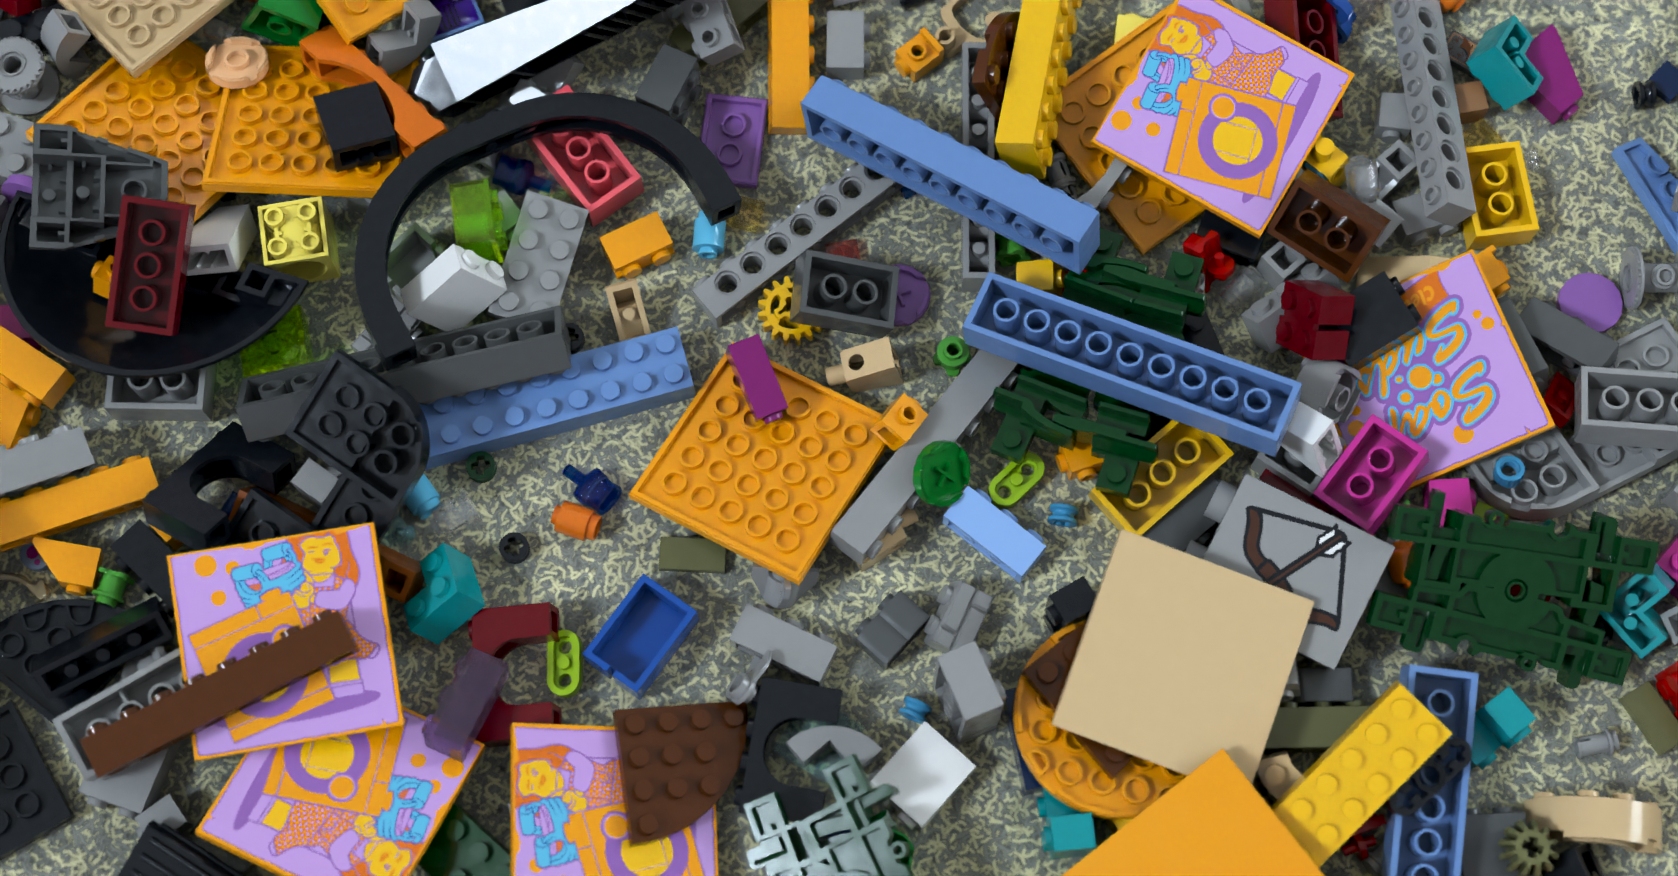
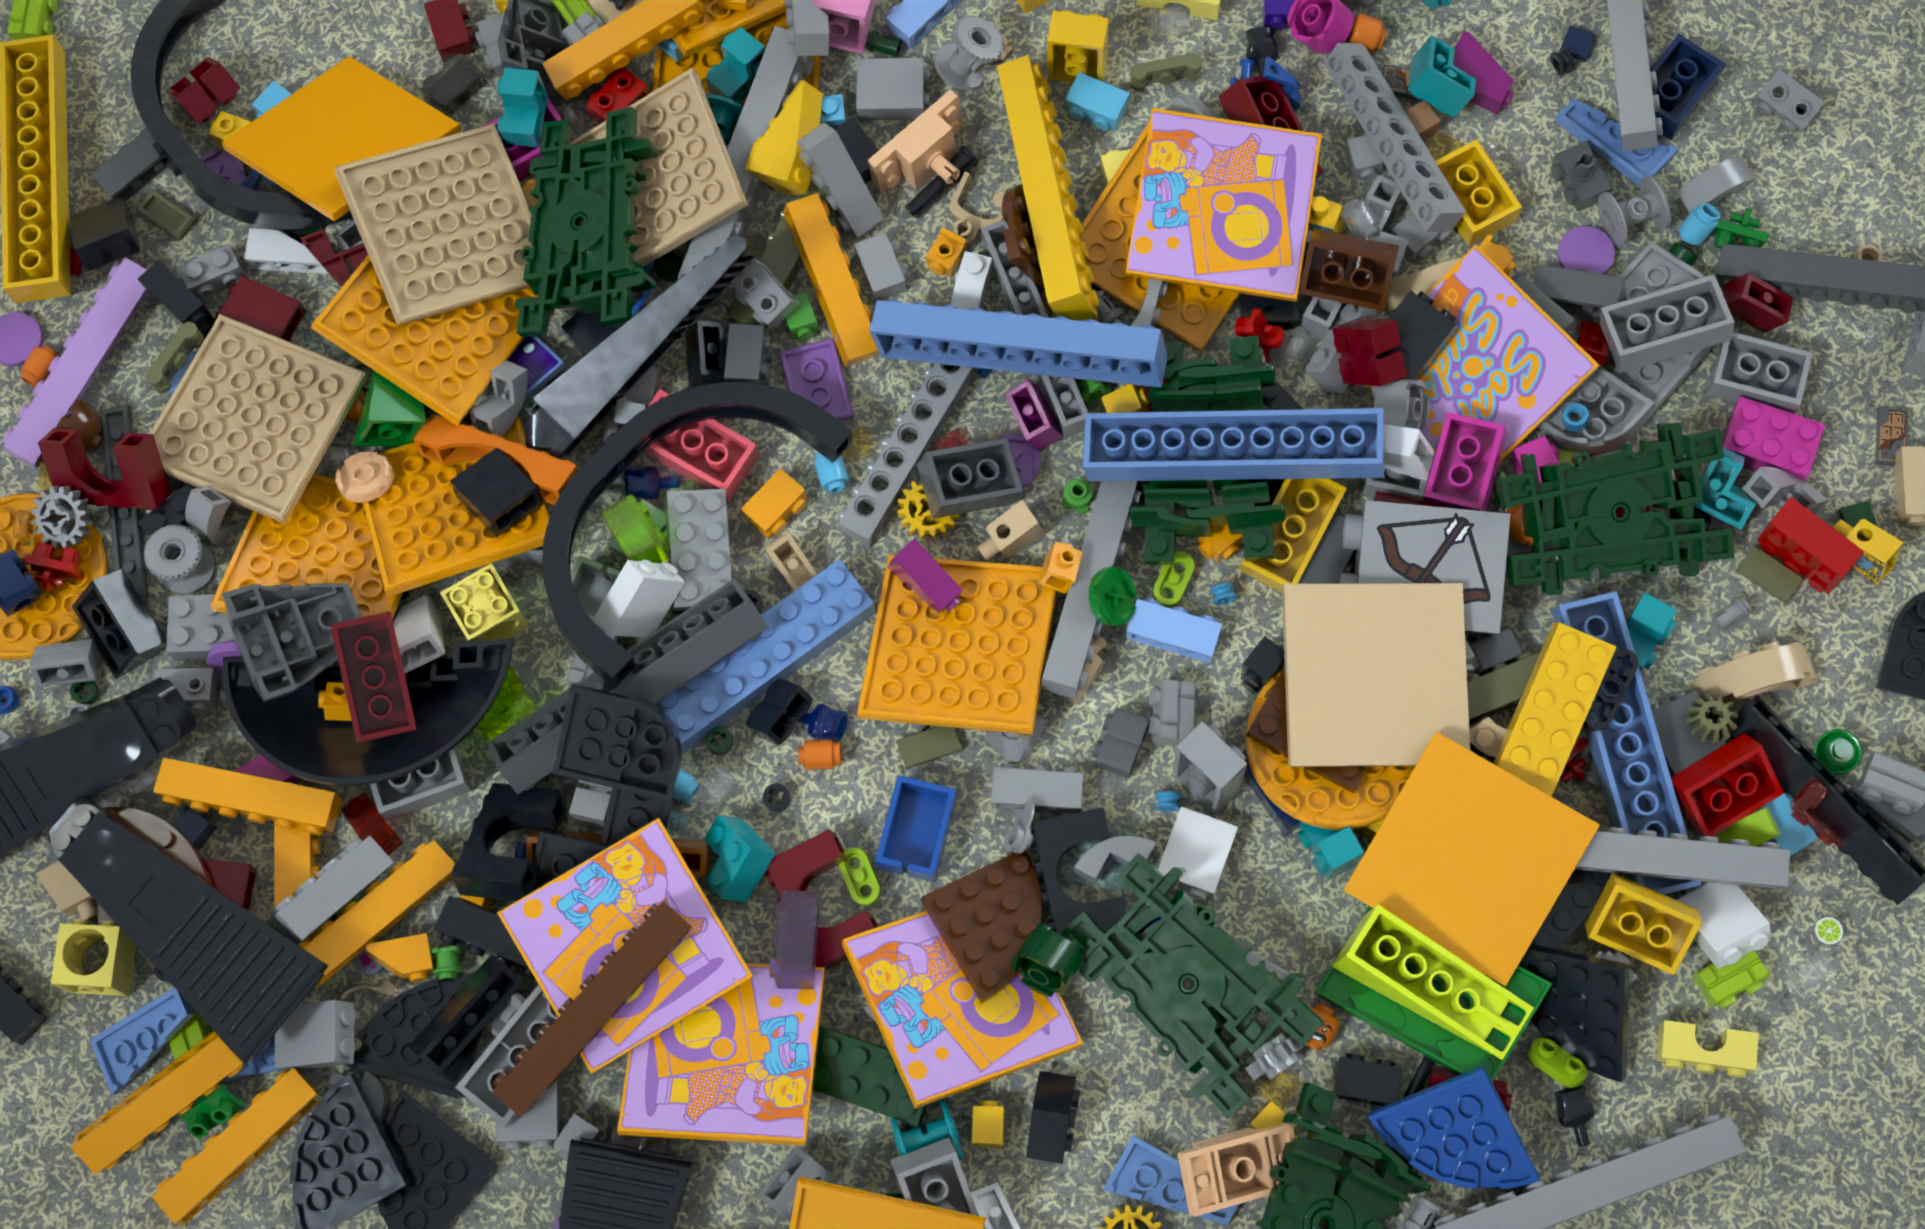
camera: 15 degrees left, 0 degrees up
(94, 419) = (368, 822): none -> clear red bracket
(556, 457) = (779, 711): none -> black brick
(630, 64) = (705, 352): none -> black brick
(716, 829) = (1047, 961): none -> dark green brick
(743, 68) = (802, 320): none -> bright green brick
(932, 94) = (972, 281): none -> white slope
(939, 254) = (1033, 415): none -> magenta brick
(1615, 220) = (1580, 176): none -> dark grey brick

